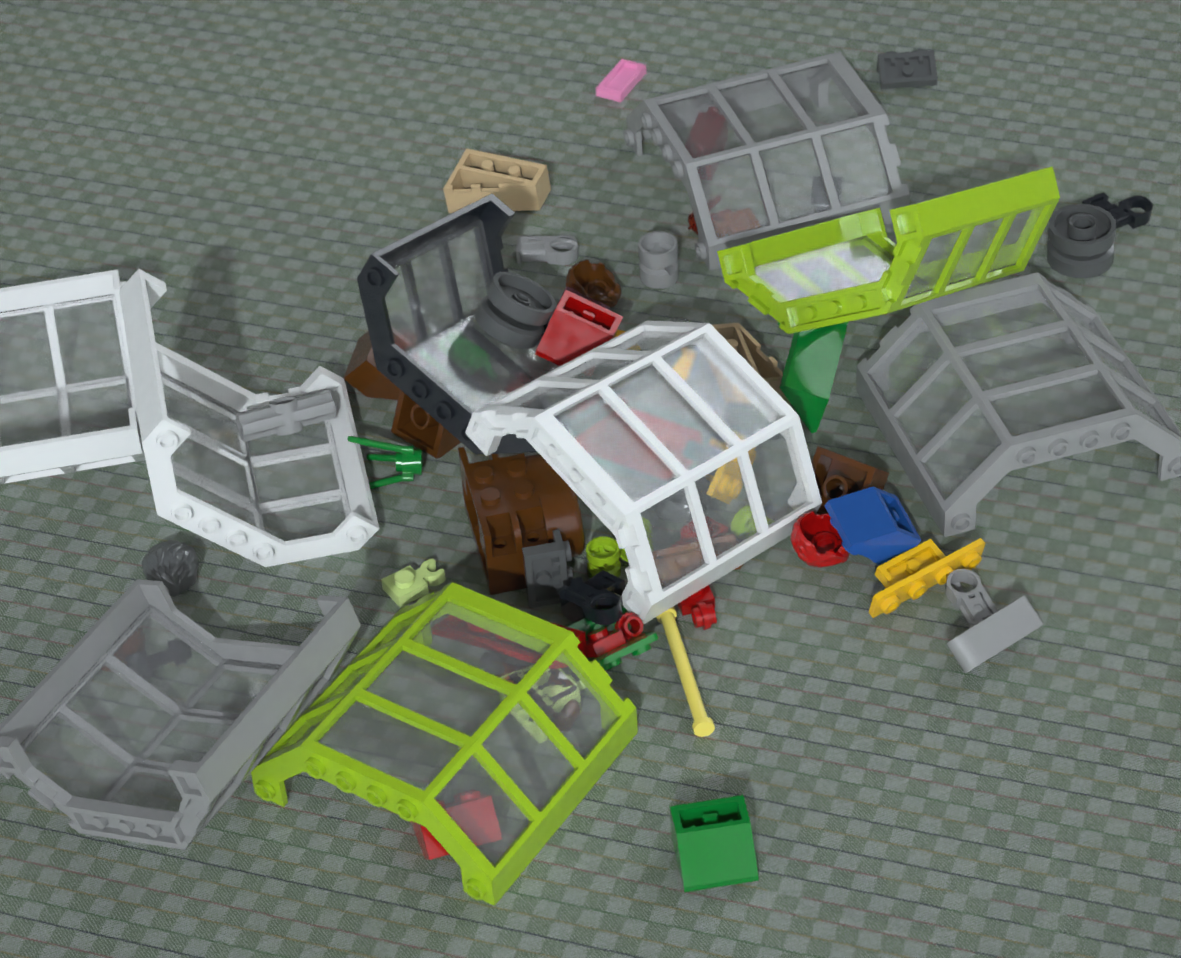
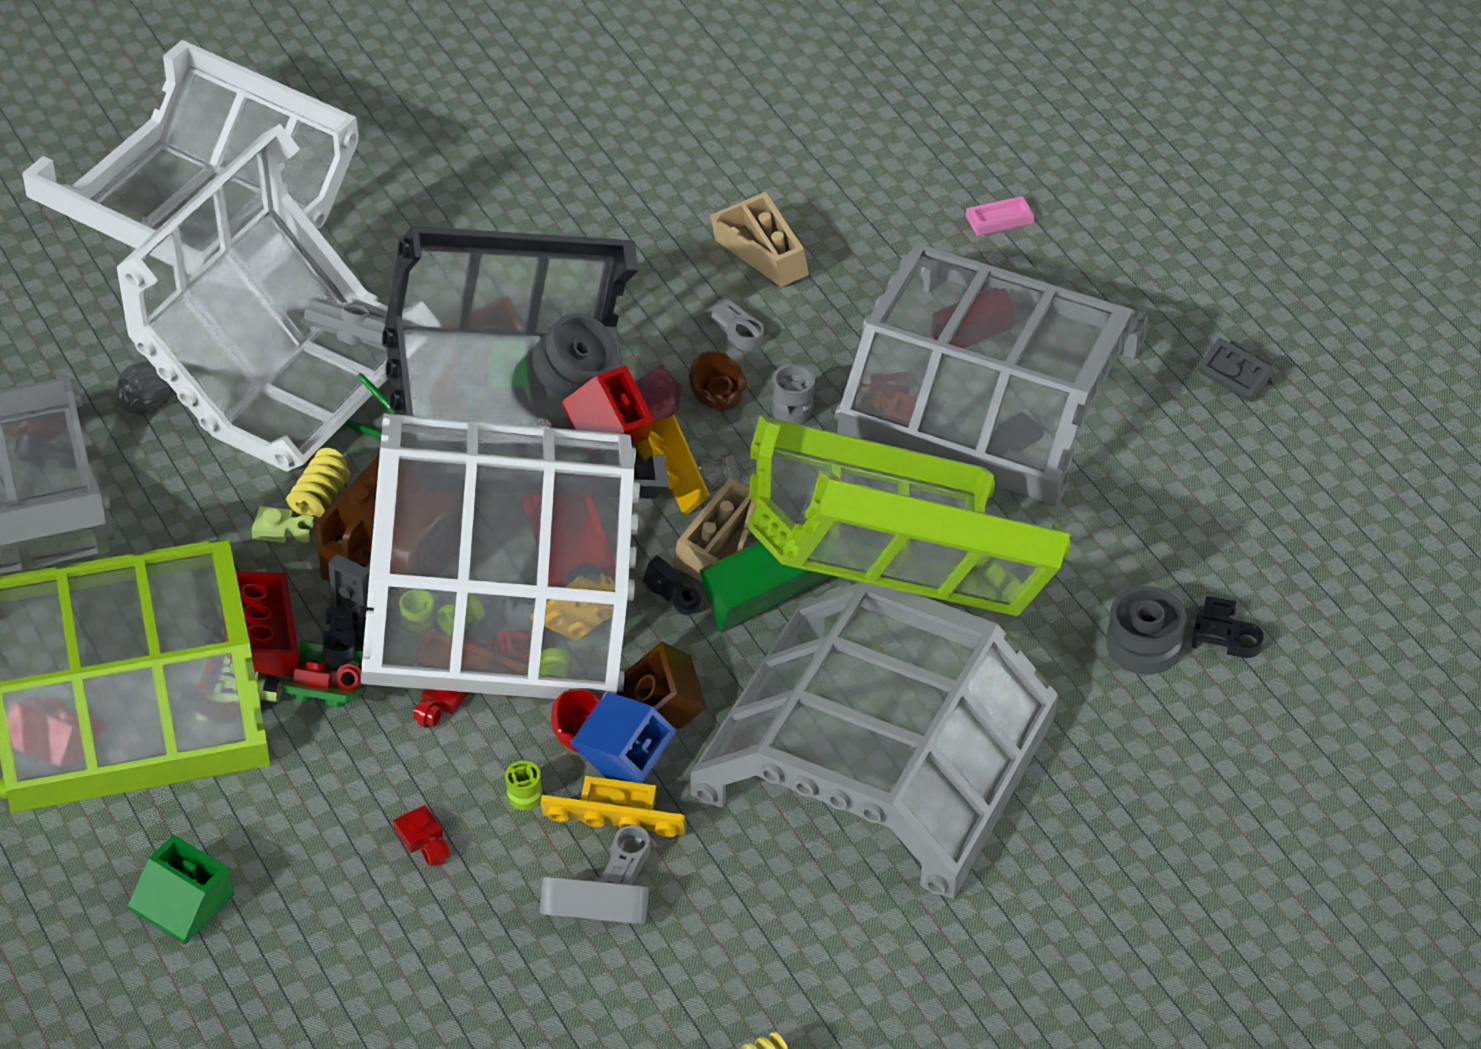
camera: 40 degrees right, 5 degrees up
(409, 532) = (319, 483): none -> light yellow piece
(702, 723) = (310, 796): light yellow bar -> none
(809, 687) = (422, 831): none -> red plate
(840, 605) = (523, 785): none -> lime wheel

